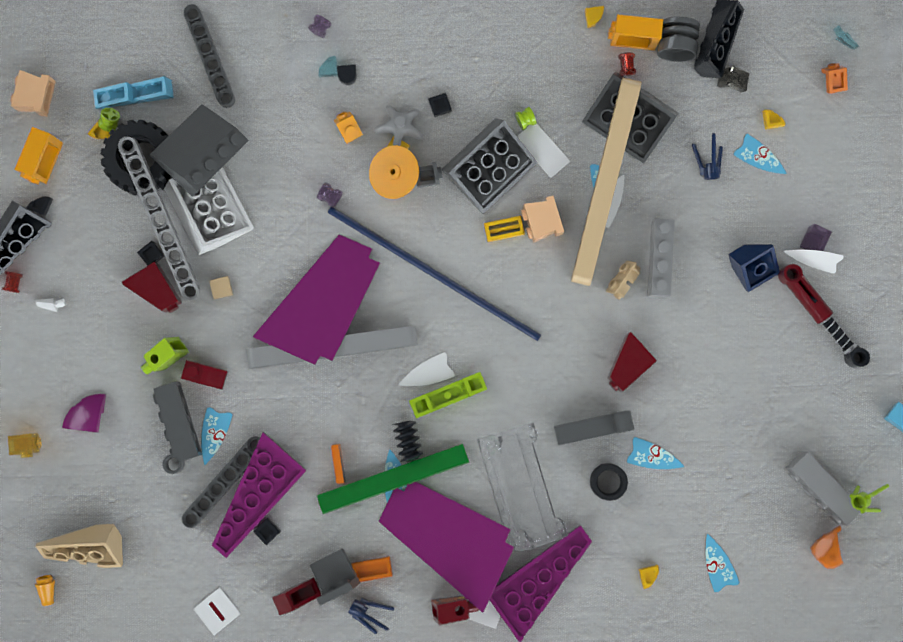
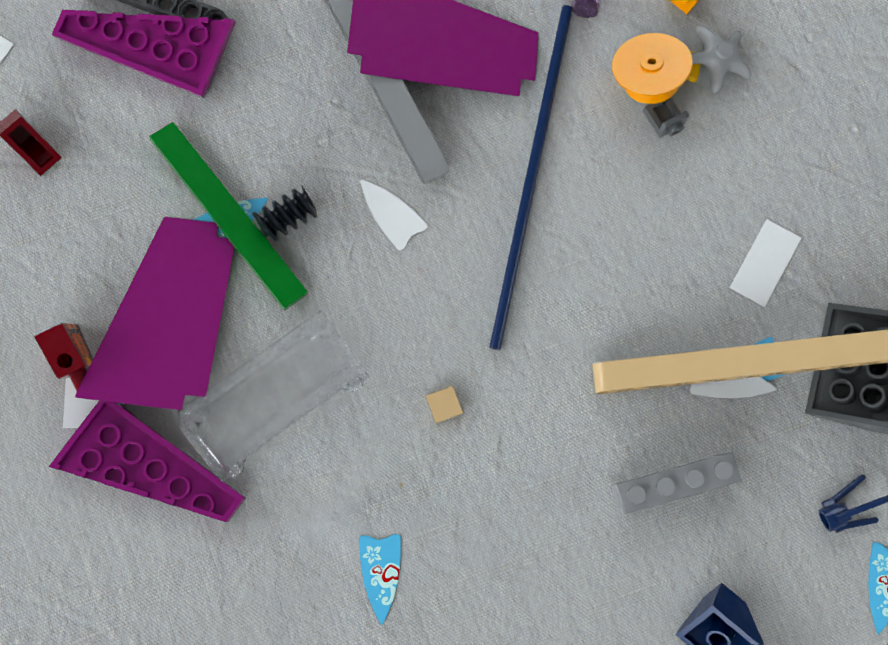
camera: 70 degrees right, 5 degrees down
(267, 531) = (105, 76): black tile -> none
(334, 576) = (68, 181): dark grey bracket -> none
(338, 464) = (224, 134): orange tile -> none
(359, 611) = (33, 230): dark blue plant -> none
(373, 568) = (95, 229): orange tile -> none
(439, 105) = (770, 101): black tile -> none
(448, 395) = (367, 247): lime slope -> none
(489, 165) = (714, 195): dark grey slope -> none
(504, 236) = (635, 272): yellow tile -> none
(525, 118) = (801, 221): lime wheel -> none
(542, 219) = (665, 292): light nougat hips -> none
(564, 381) = (444, 404): none -> tan tile
(594, 427) = (392, 468): dark grey beam -> none
(623, 482) = (298, 518): black tyre -> none
(627, 272) = (635, 440): tan hinge -> none
(630, 363) = (504, 490): dark red slope -> none
(648, 575) = (203, 625): yellow tile -> none

